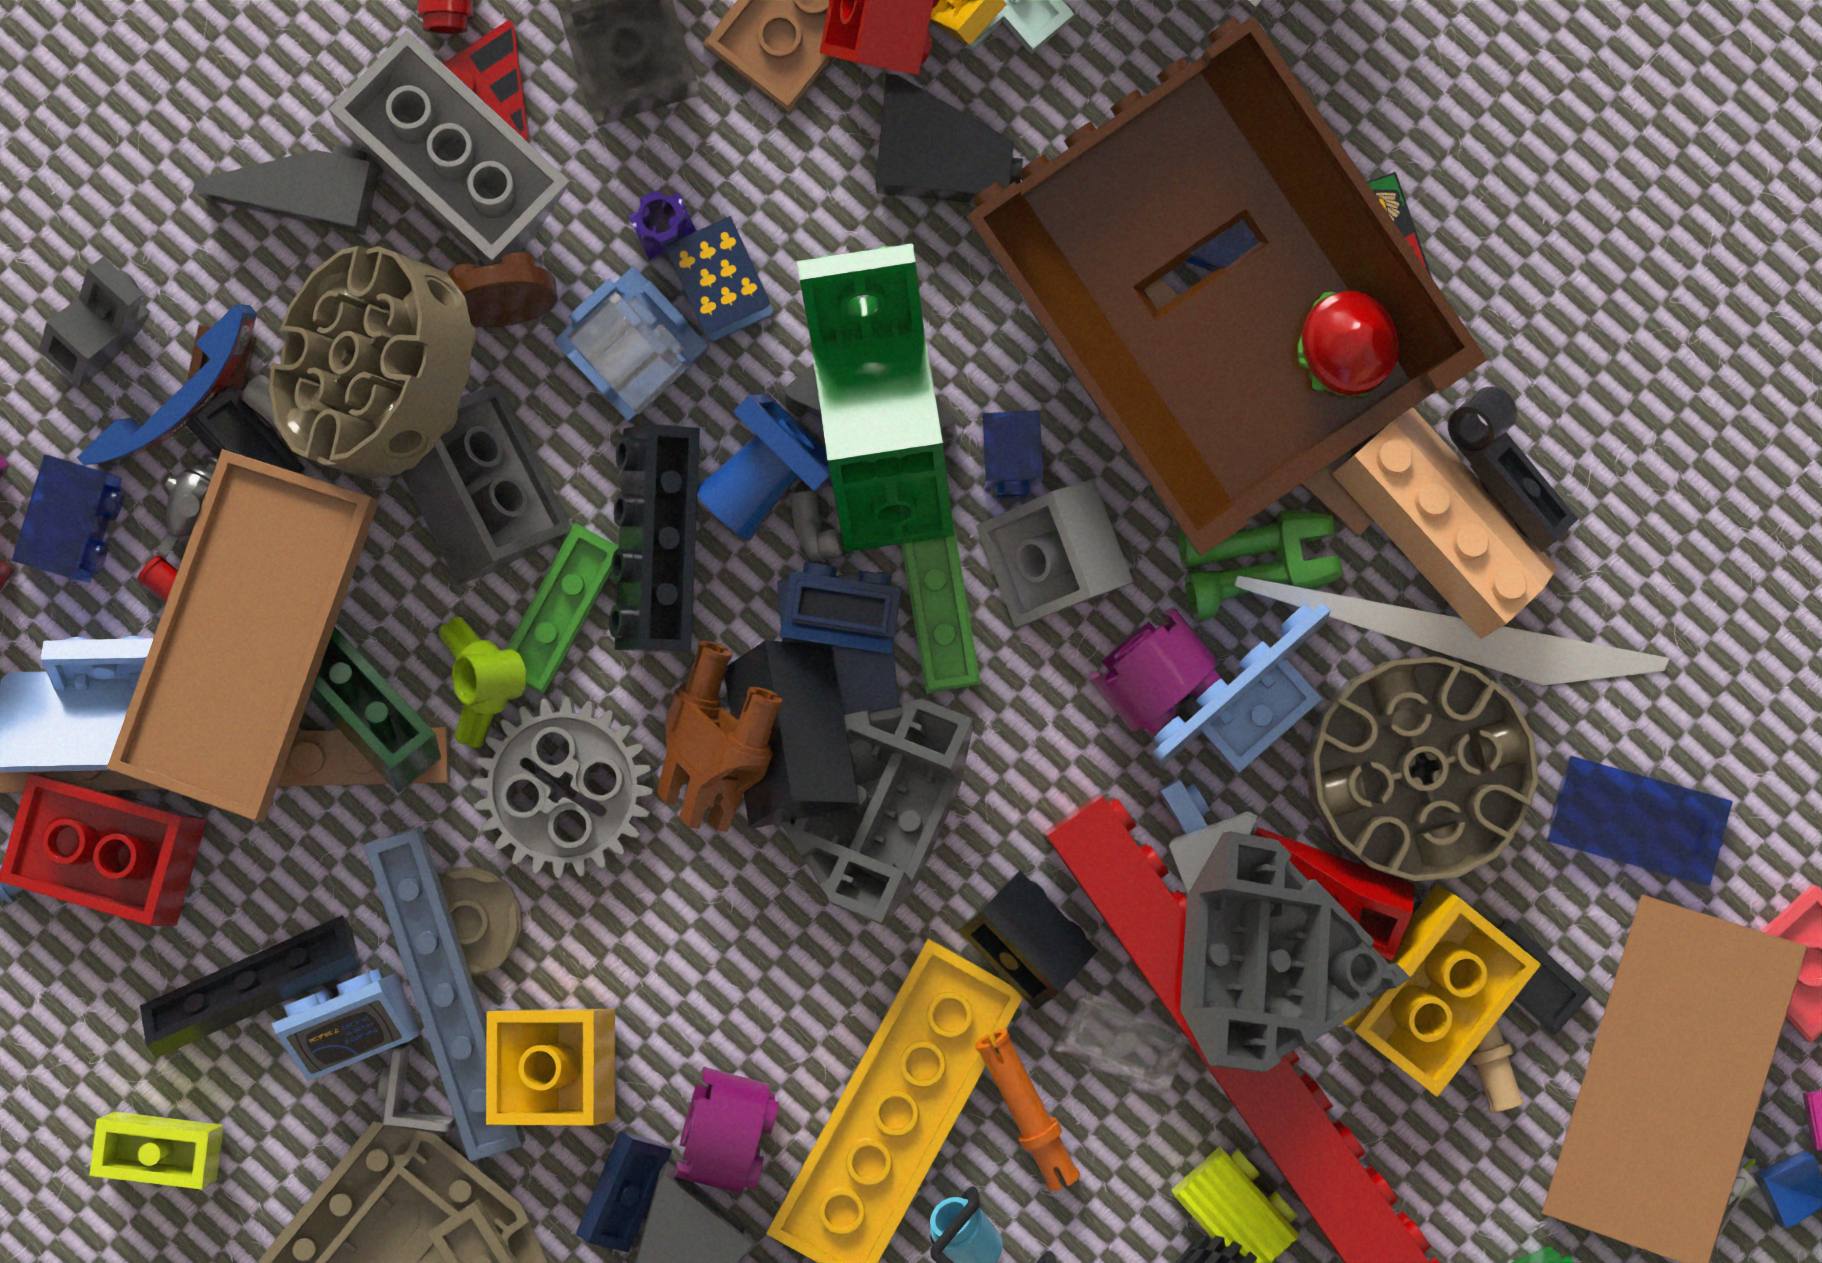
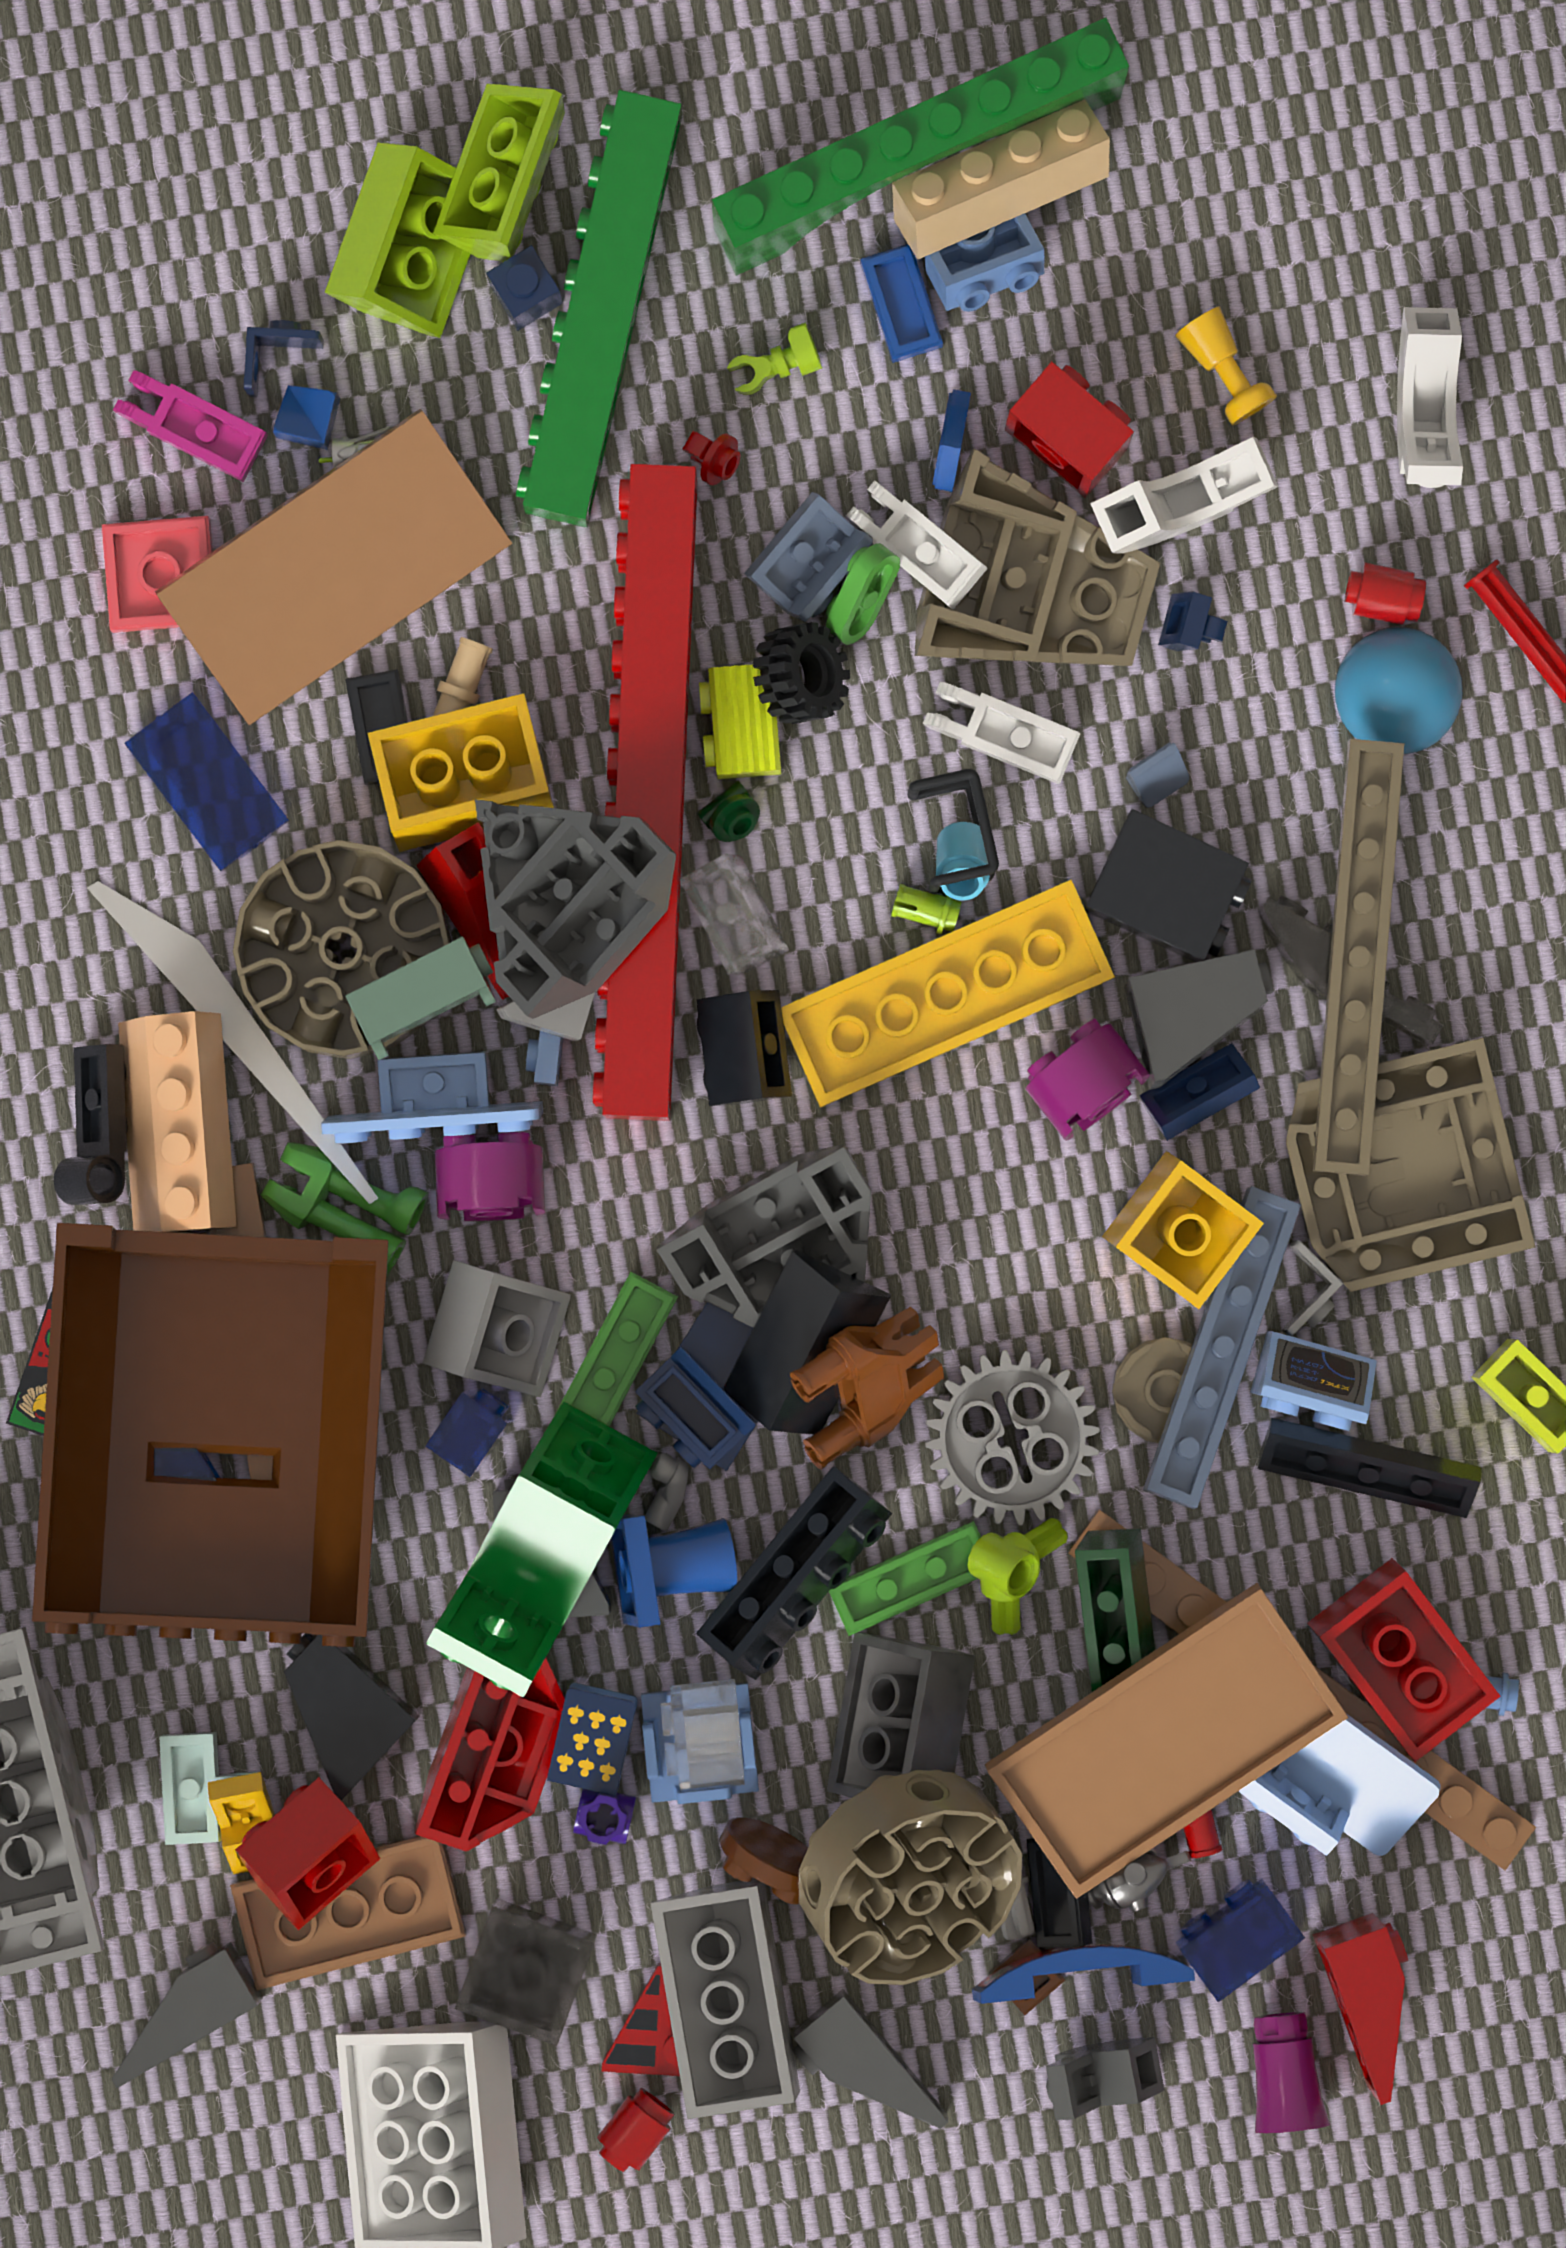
camera: 145 degrees left, 0 degrees up
(788, 195) = (490, 1760): none -> red wedge
(965, 1171) = (926, 908): none -> lime pin
(1037, 1129) = (847, 898): orange pin -> none
(1187, 1125) = (731, 814): none -> dark green plate
(1332, 782) = (420, 992): none -> sand green brick
(1348, 344) = (149, 1316): red hair -> none

